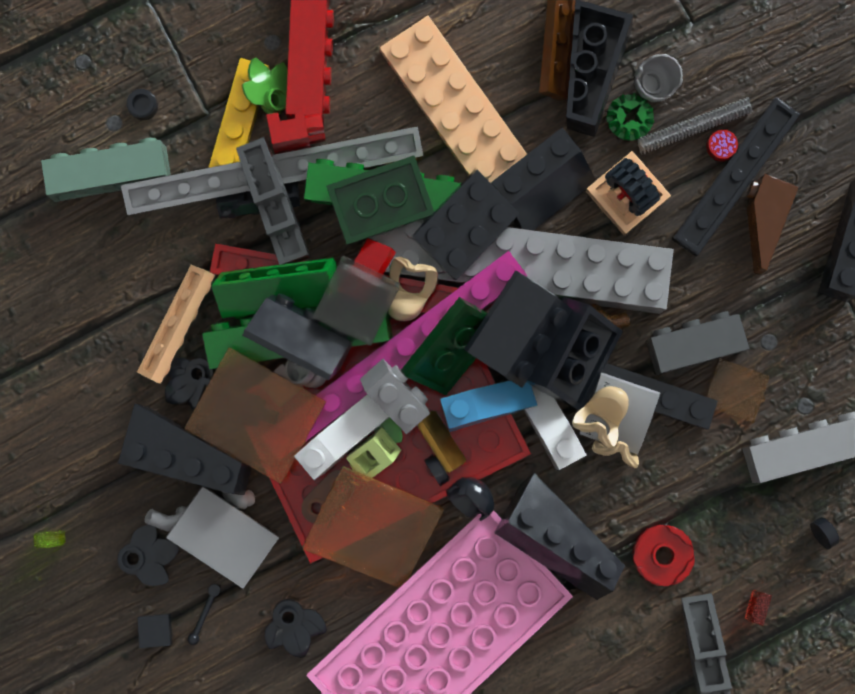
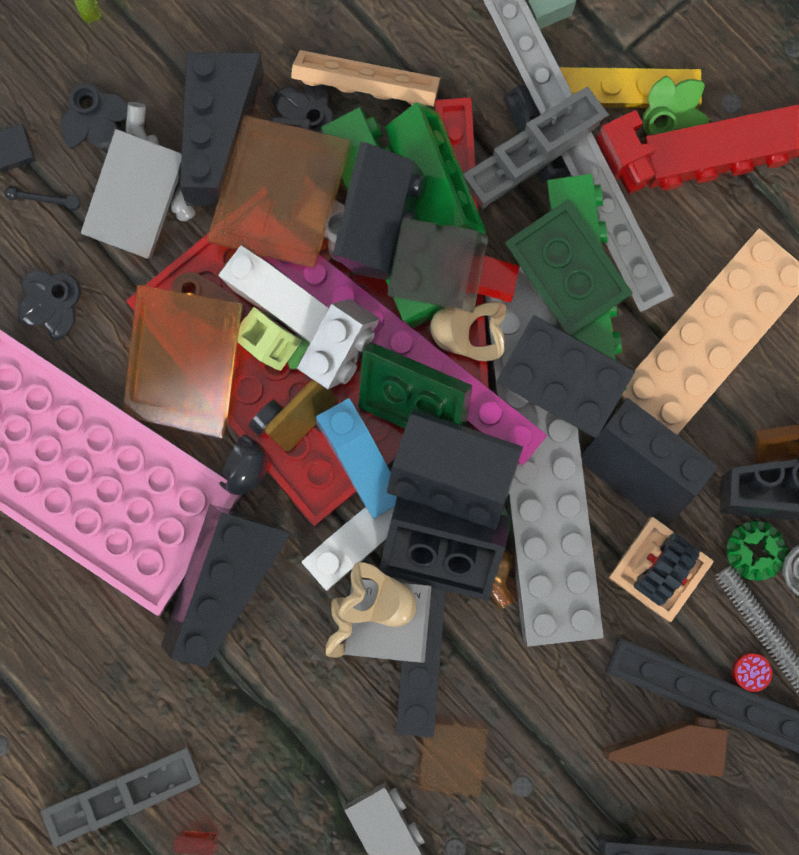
camera: 75 degrees right, 0 degrees up
(645, 555) = (210, 719): red tile -> none
(697, 342) = (498, 696): dark grey brick -> none

